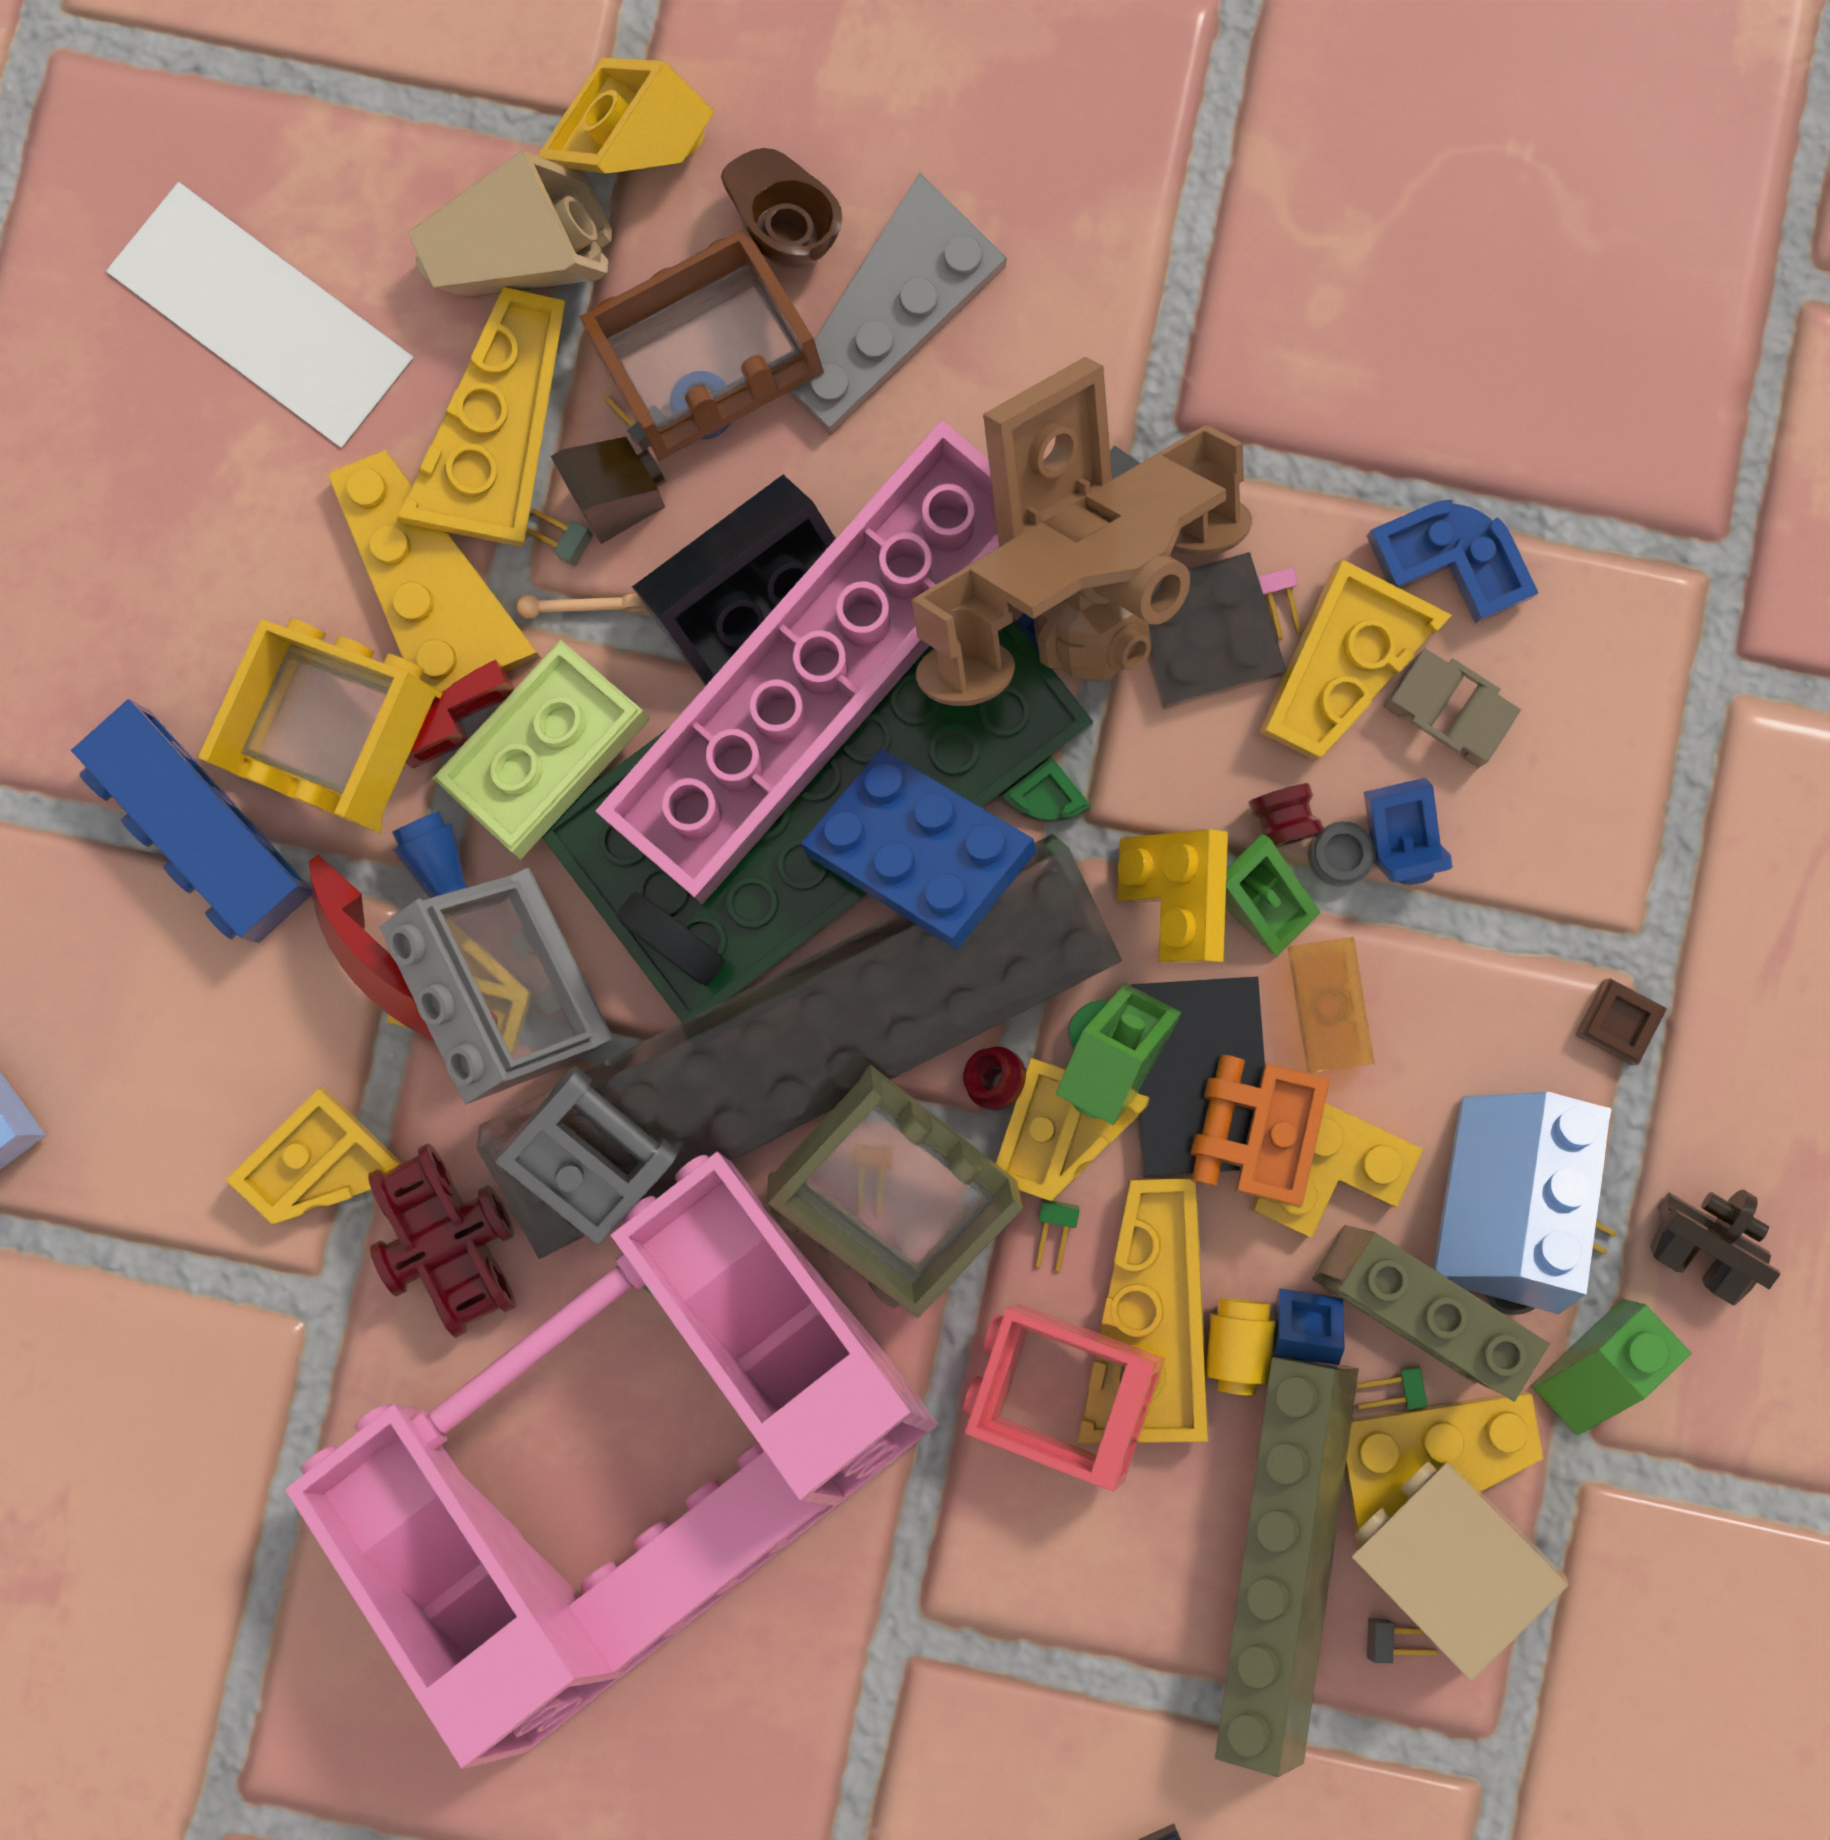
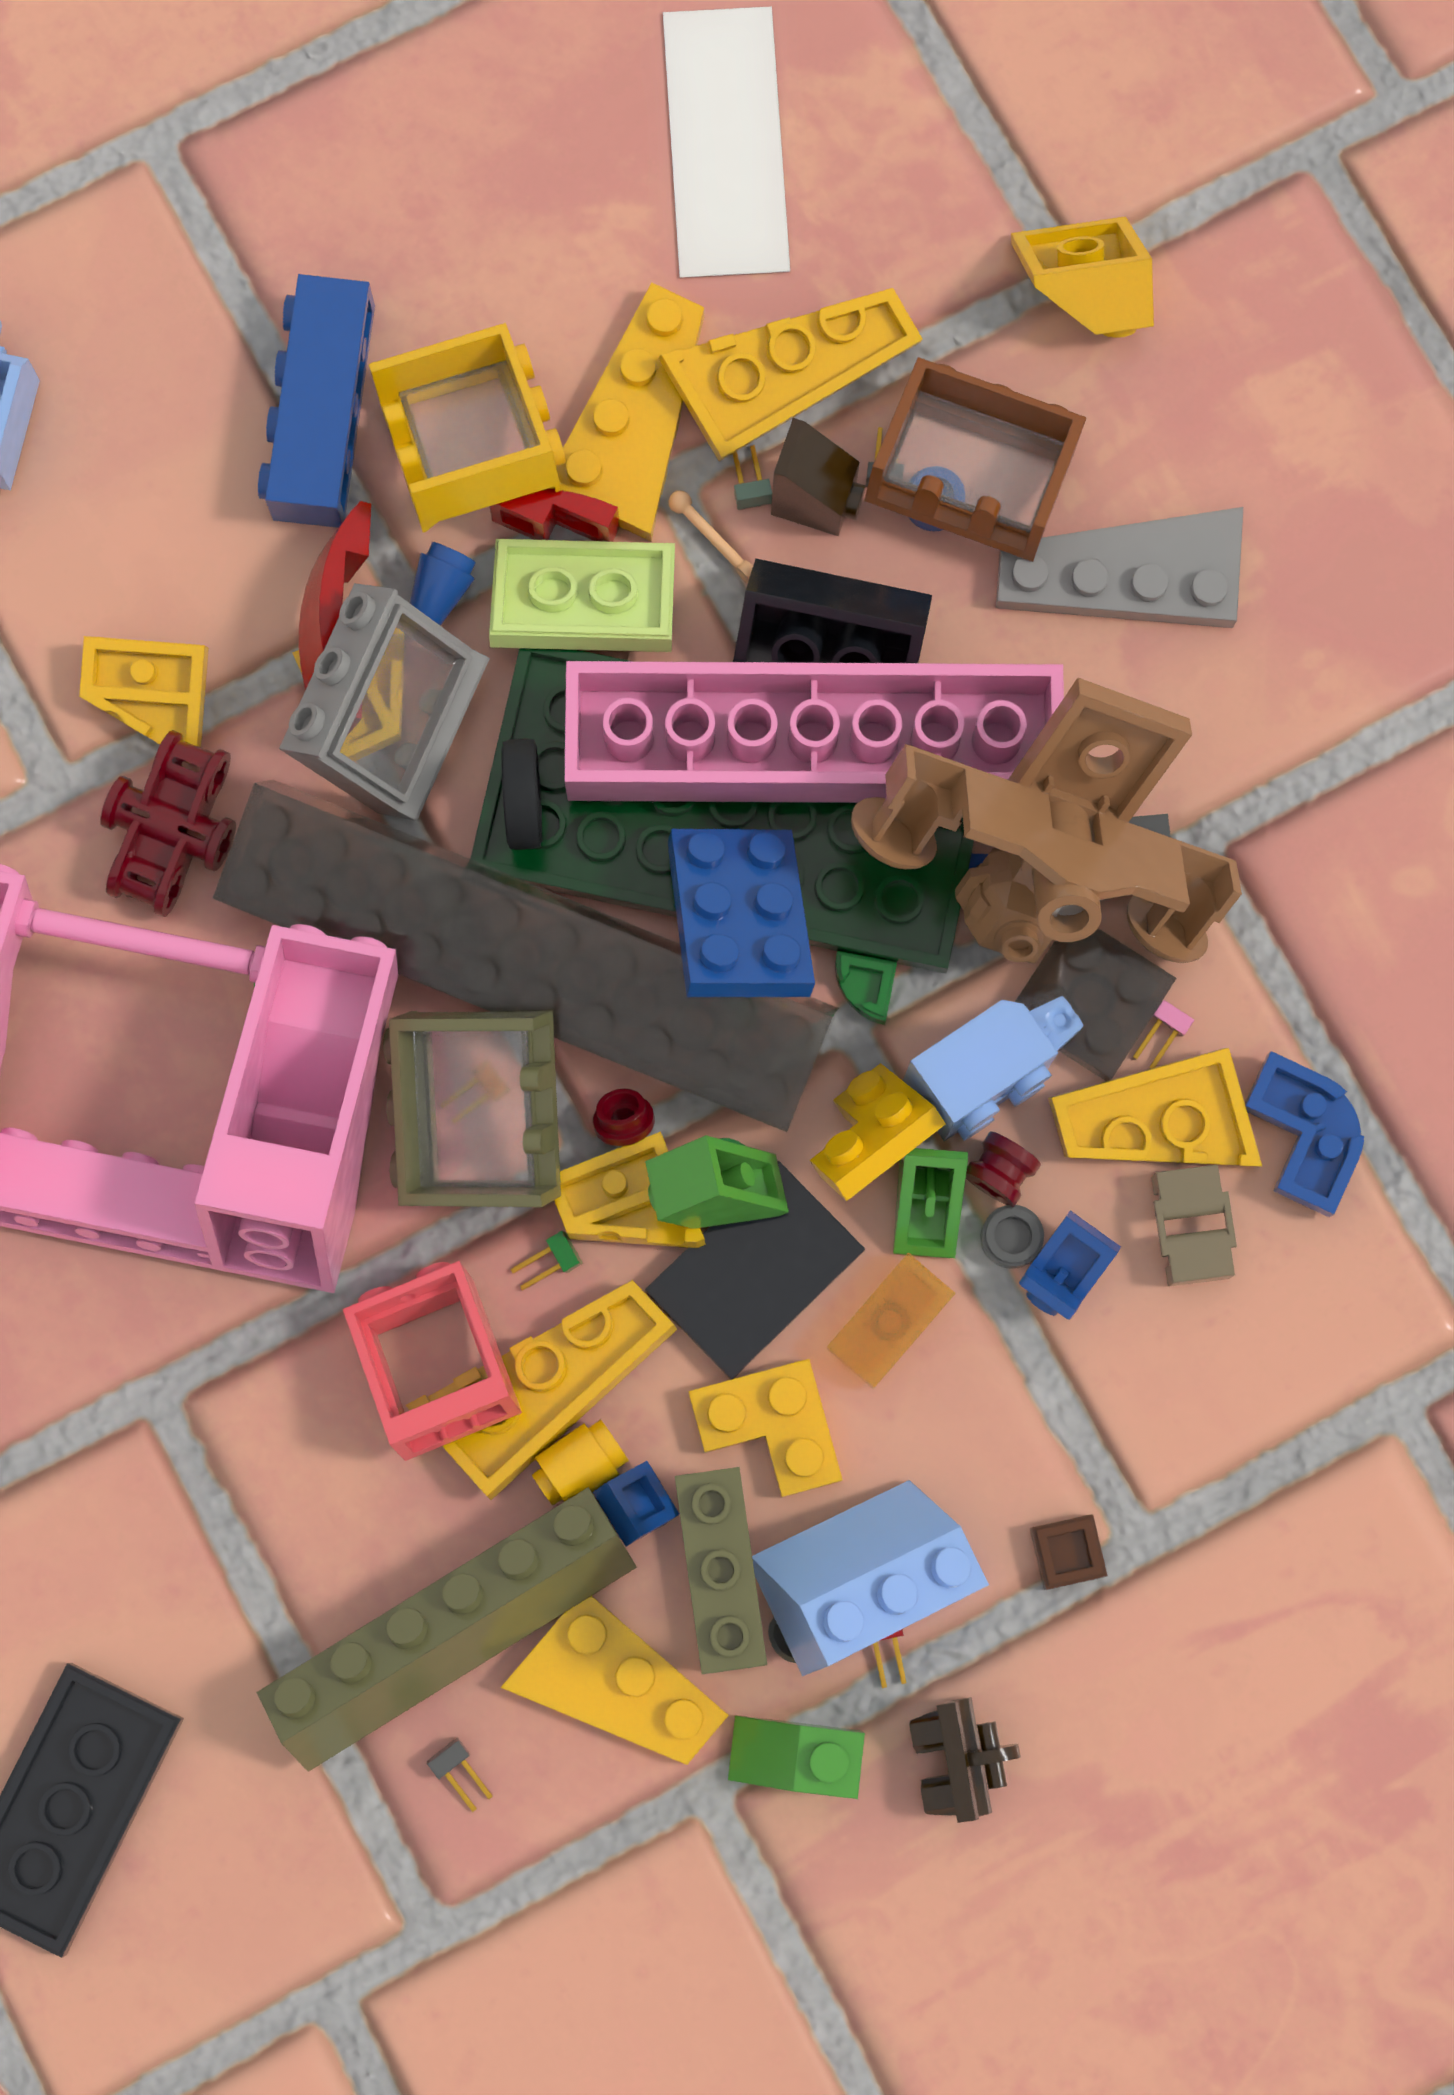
camera: 45 degrees right, 5 degrees down
(515, 230) = (943, 263): tan slope -> none
(570, 1171) = (293, 861): flat silver plate -> none
(782, 207) = (1127, 430): reddish brown piece -> none
(1204, 753) = (991, 1060): none -> light blue hinge
(1280, 1134) = (759, 1357): orange plate -> none
(1413, 1389) = (659, 1622): piece -> none
(1458, 1567) = (549, 1759): tan slope -> none

